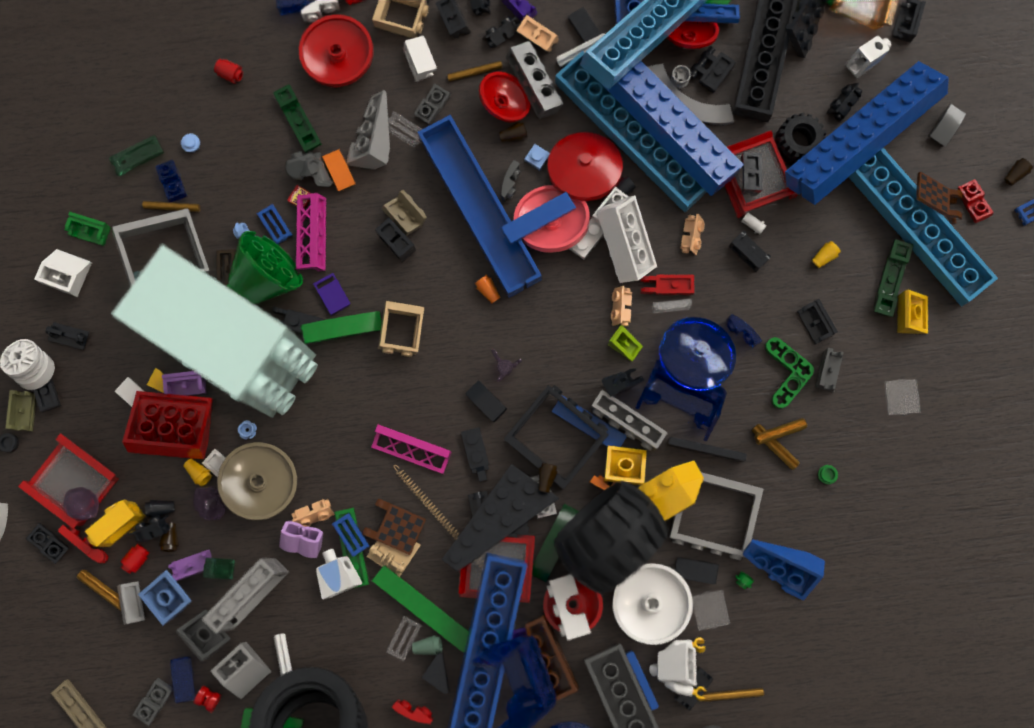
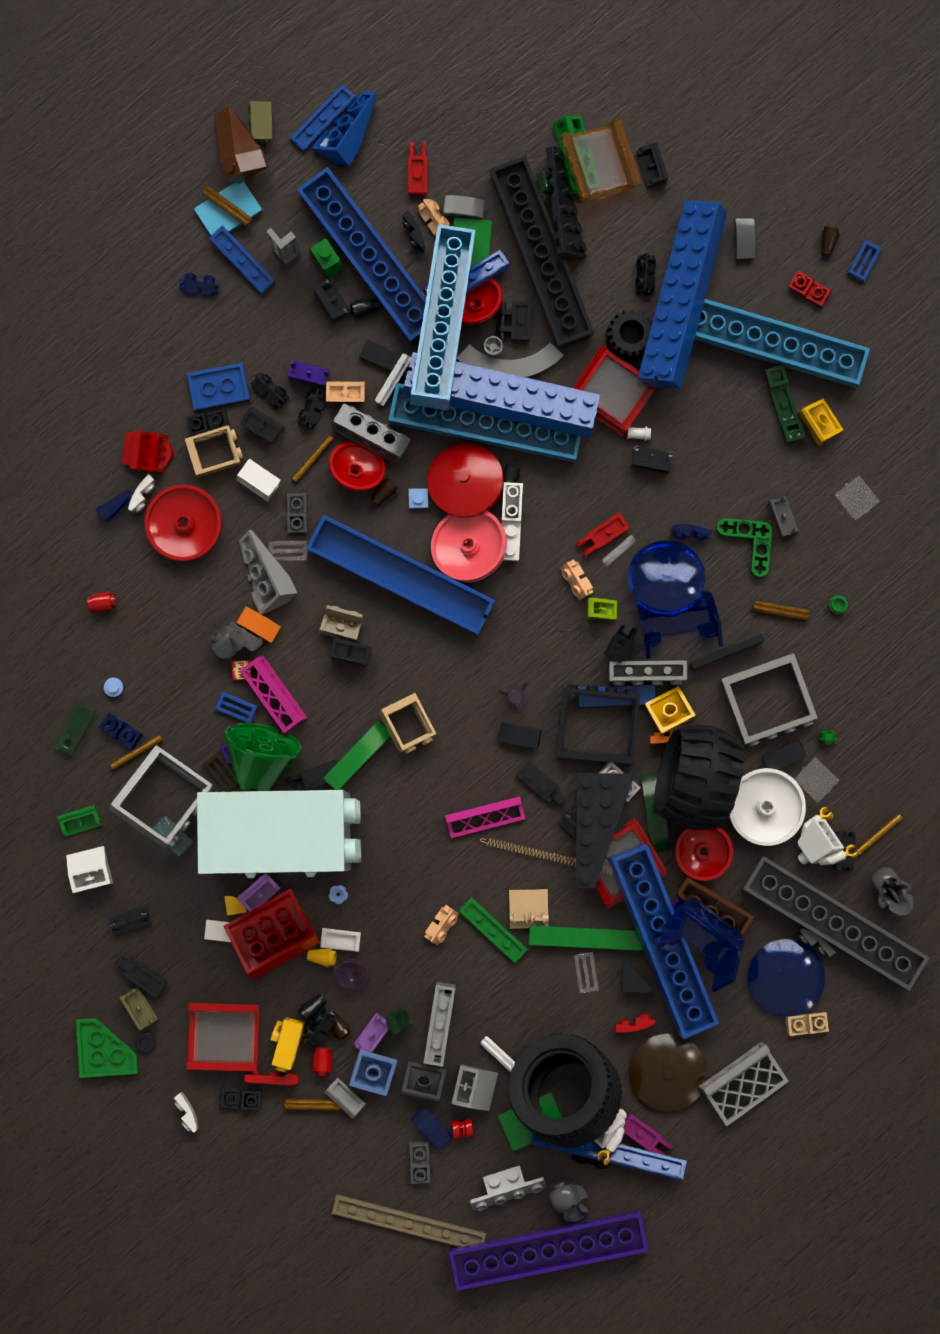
camera: 40 degrees left, 5 degrees up
(27, 364) = (127, 970): white wheel -> none
(81, 503) = (248, 1047): clear purple hair -> none
(239, 229) = (212, 733): light blue plate -> none
(257, 481) = (378, 929): dark tan dish -> none
(297, 118) = (191, 604): dark green slope -> none
(301, 539) = (448, 951): lavender brick -> none
(332, 295) = (328, 734): dark purple piece -> none
(336, 575) = (497, 960): white torso -> none
(344, 539) = (500, 926): blue tile -> none
(399, 528) = (520, 888): reddish brown flag -> none
(428, 646) = (610, 965): sand green cone -> none
(487, 289) = (455, 640): orange cone -> none
(508, 186) = (412, 540): dark grey slope -> none
(538, 218) = (459, 553): blue tile -> none
(547, 474) = (613, 763): dark brown cone -> none
(572, 625) = (688, 845): white arch -> none
(627, 239) = (545, 521): white slope -> none
(642, 680) = (799, 873): blue tile -> none
(674, 489) = (723, 703): yellow wedge -> none
(694, 227) = (592, 469): light nougat hinge -> none
(752, 173) = (611, 395): black hinge -> none
(780, 431) = (777, 595): pearl gold axle -> none
(791, 568) = (860, 702): blue wedge -> none
(817, 321) = (746, 482): black hinge -> none
(826, 254) = (716, 419): yellow cone -> none
(872, 51) = (640, 221): white torso -> none
(938, 197) = (775, 311): reddish brown flag -> none

